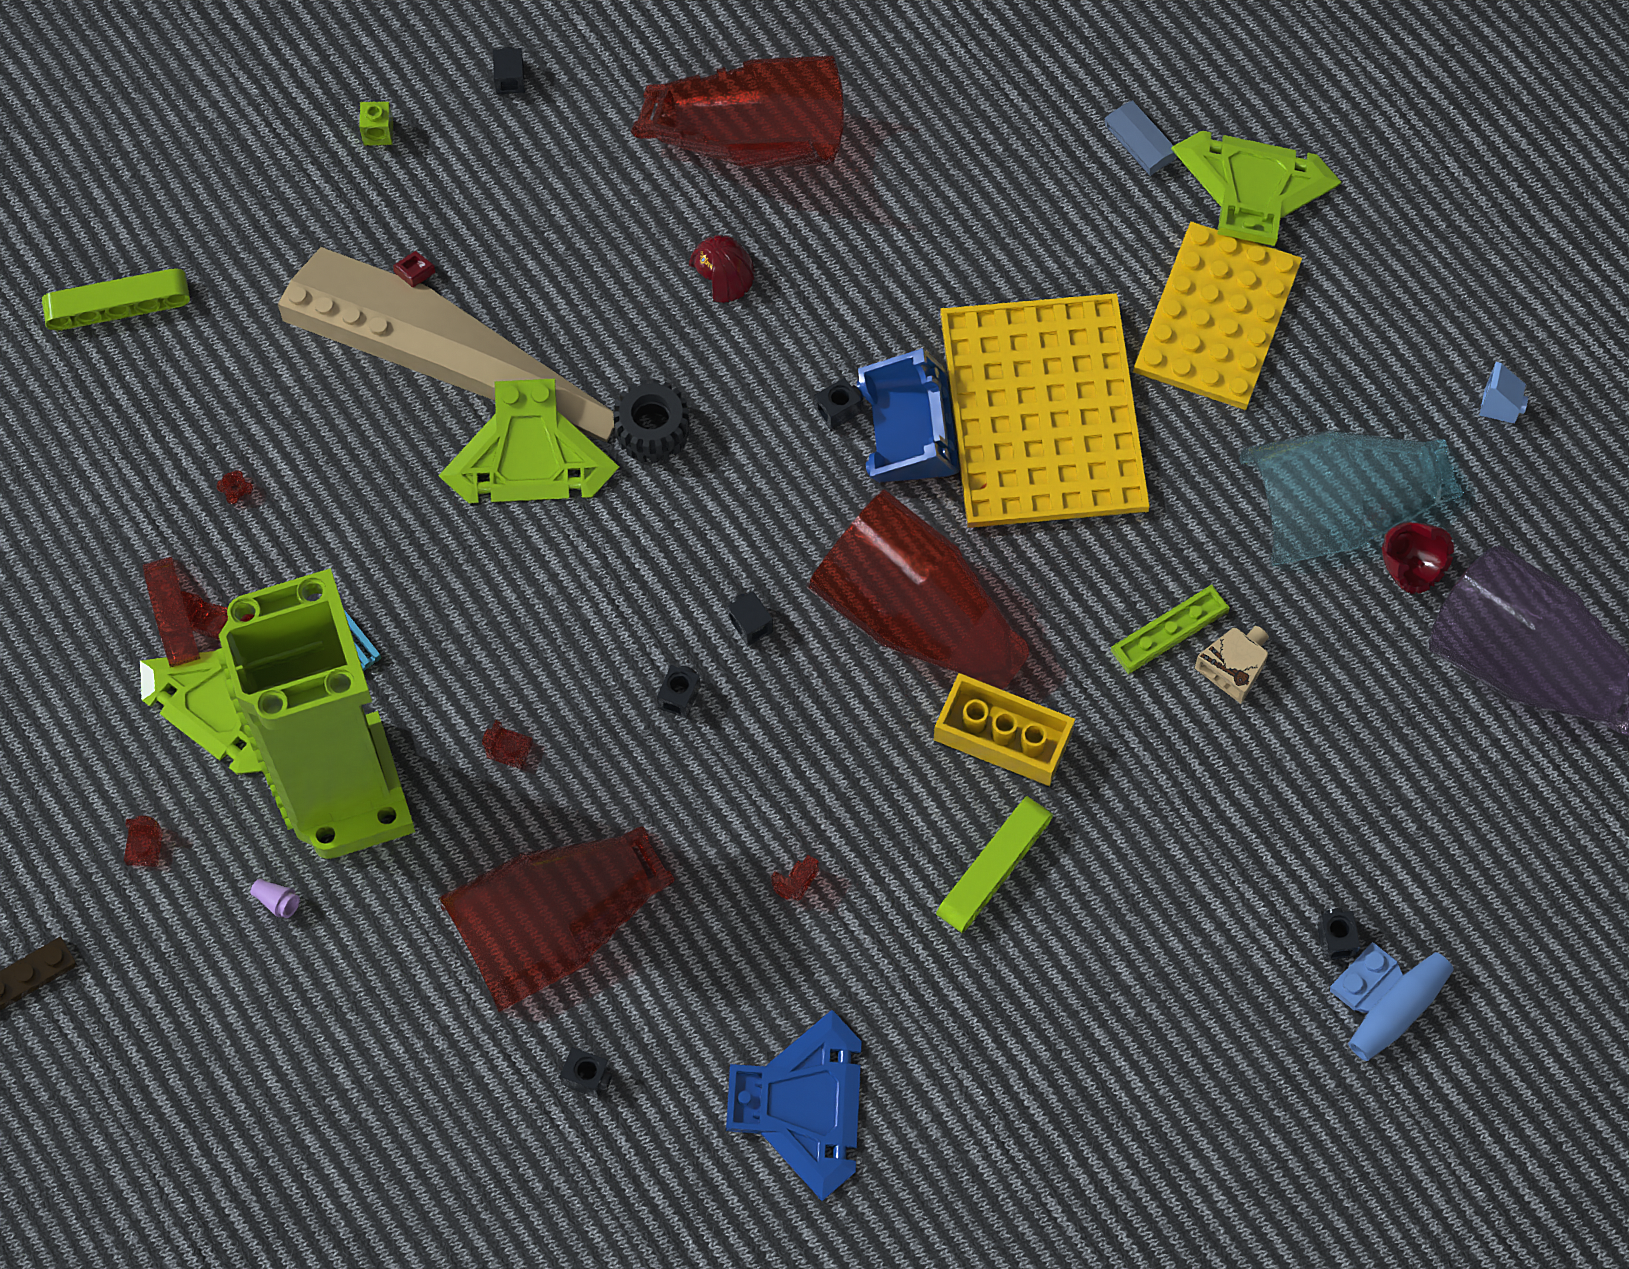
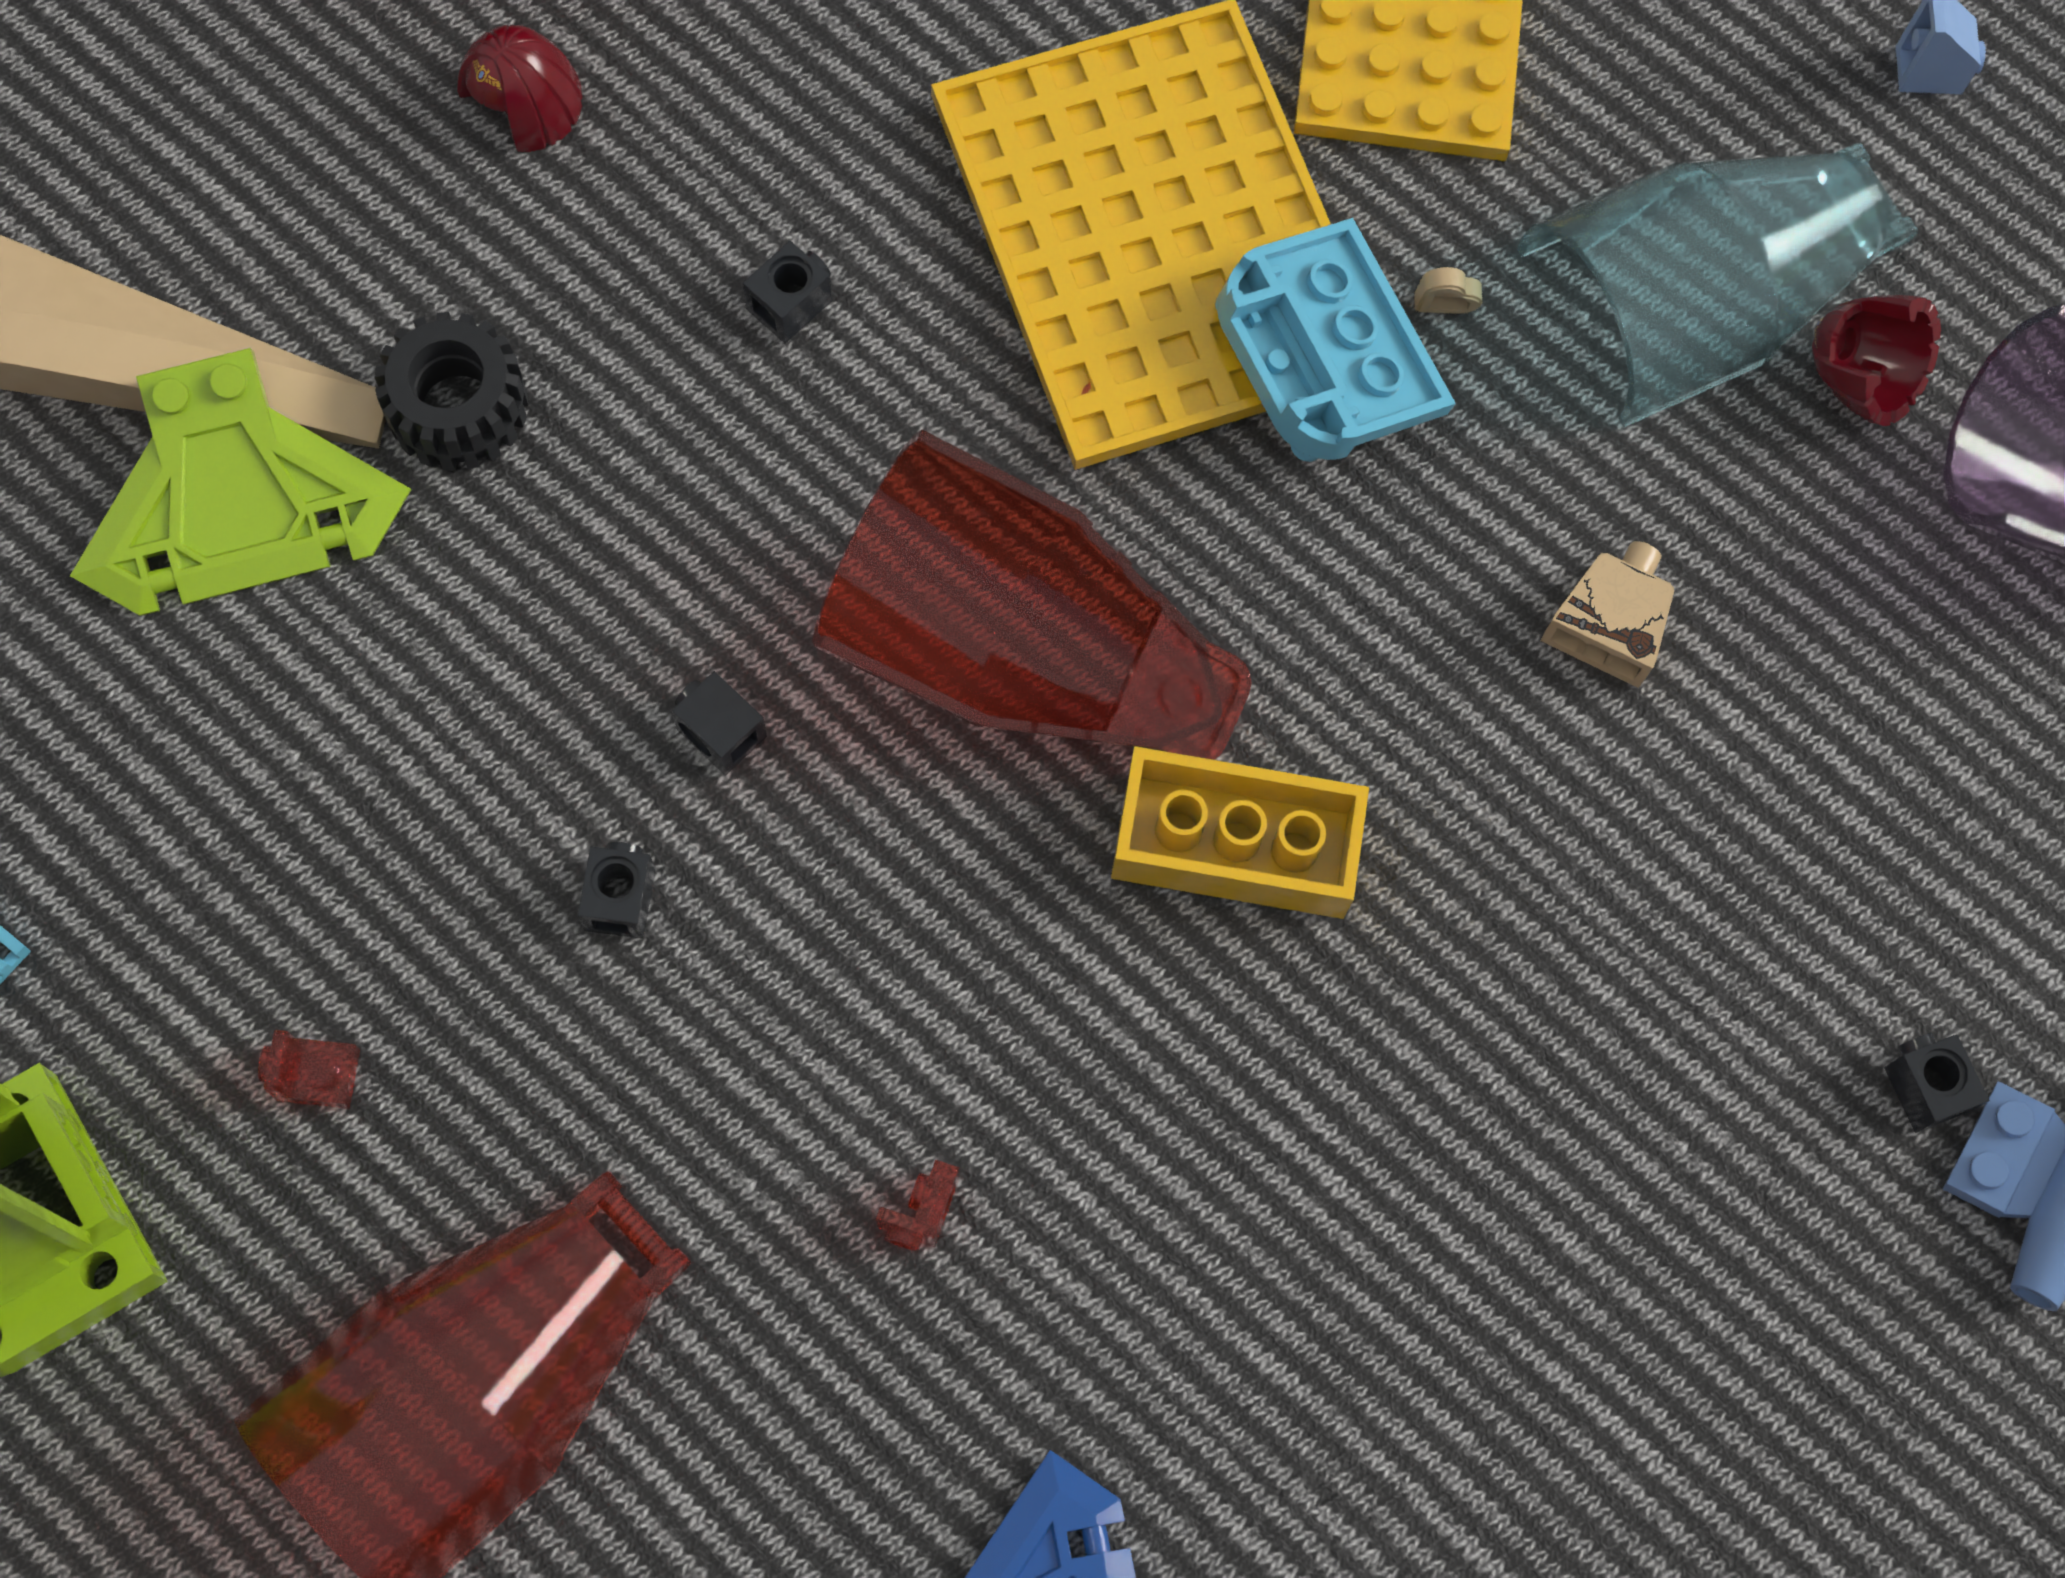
camera: 20 degrees left, 5 degrees up
(910, 418) = (924, 292): blue windscreen -> none
(994, 864) = (1283, 1094): lime beam -> none
(1116, 488) = (1328, 343): none -> medium azure plate
(1170, 629) = (1480, 579): lime tile -> none
(1192, 474) = (1448, 292): none -> tan tile

